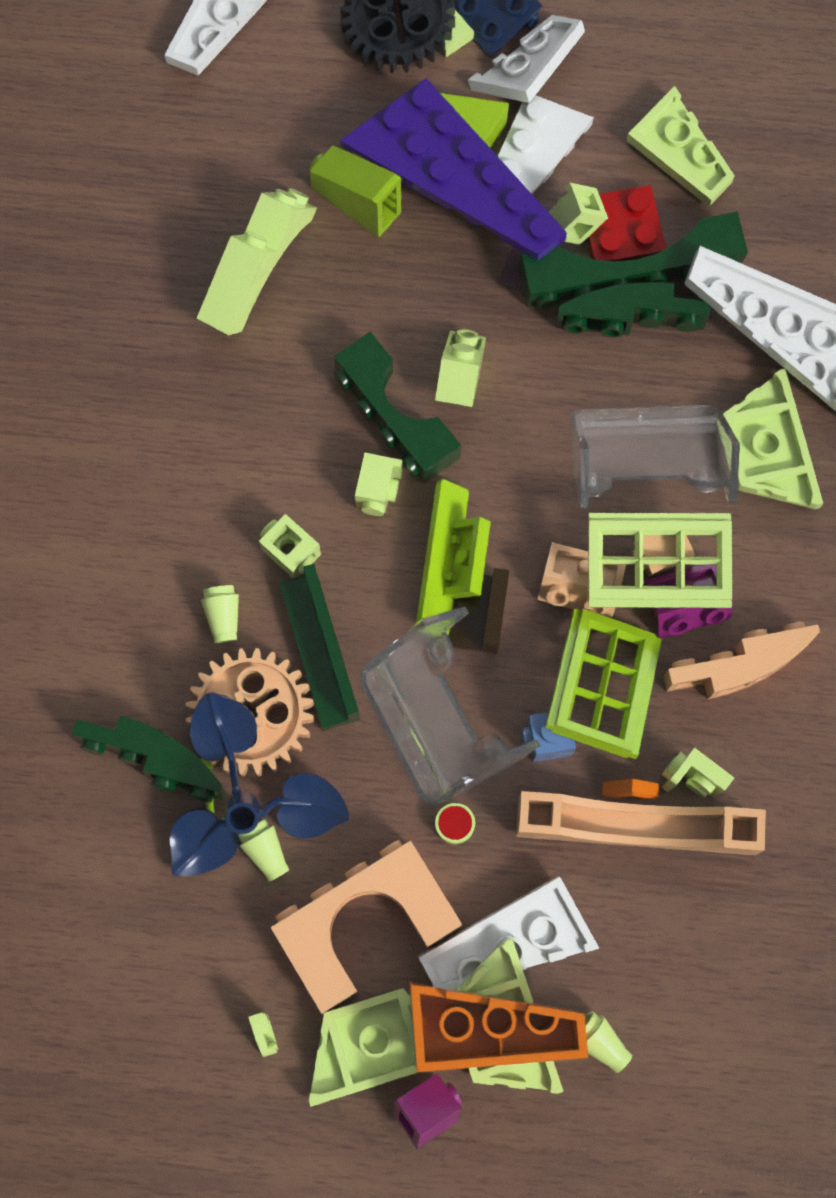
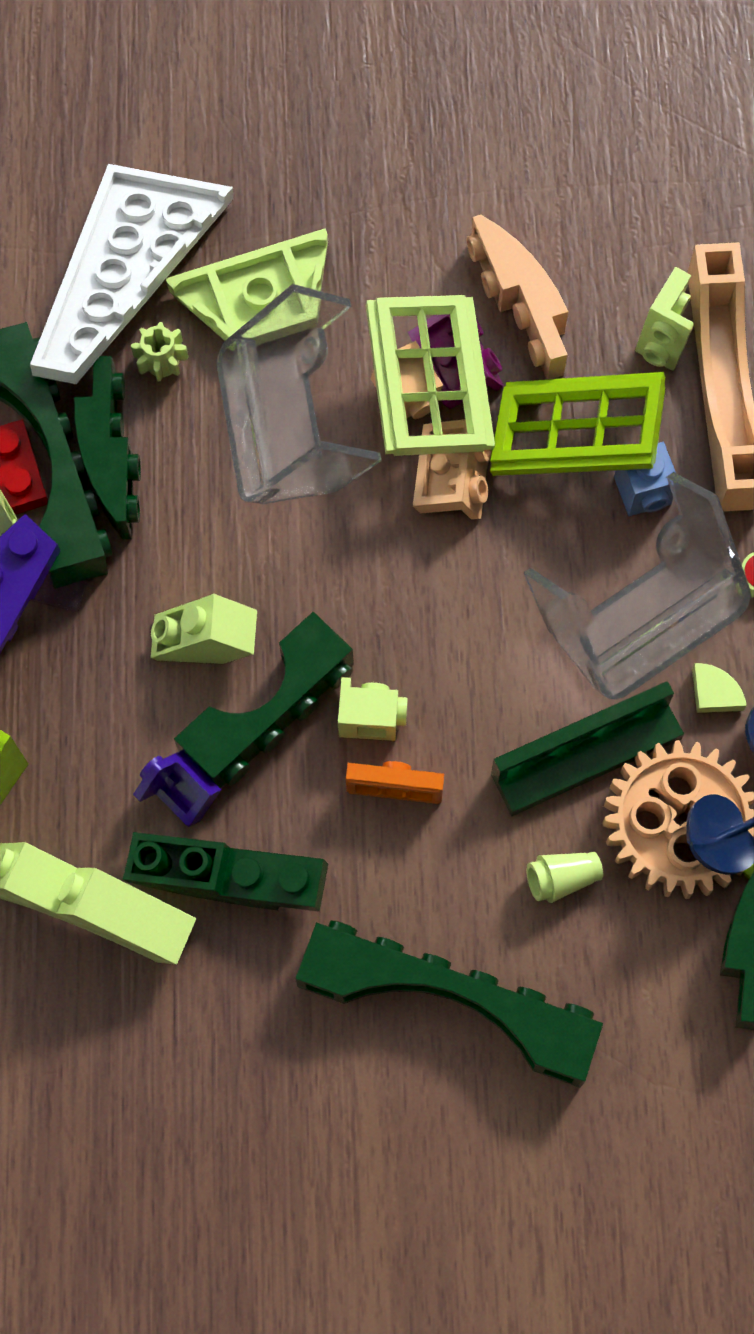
camera: 95 degrees left, 5 degrees down
(96, 579) = (549, 1037): none -> dark green arch
(264, 363) = (225, 873): none -> dark green slope
(287, 531) = (471, 788): yellowish green brick -> none
(317, 494) = (394, 781): none -> orange plate
(337, 336) = (179, 785): none -> dark purple bracket
(357, 763) = (716, 690): none -> yellowish green tile
(453, 552) = (450, 607): lime bracket -> none
(482, 626) = (495, 570): dark brown panel -> none
(630, 787) = (687, 396): orange tile -> none
(721, 348) = (155, 340): none -> yellowish green gear

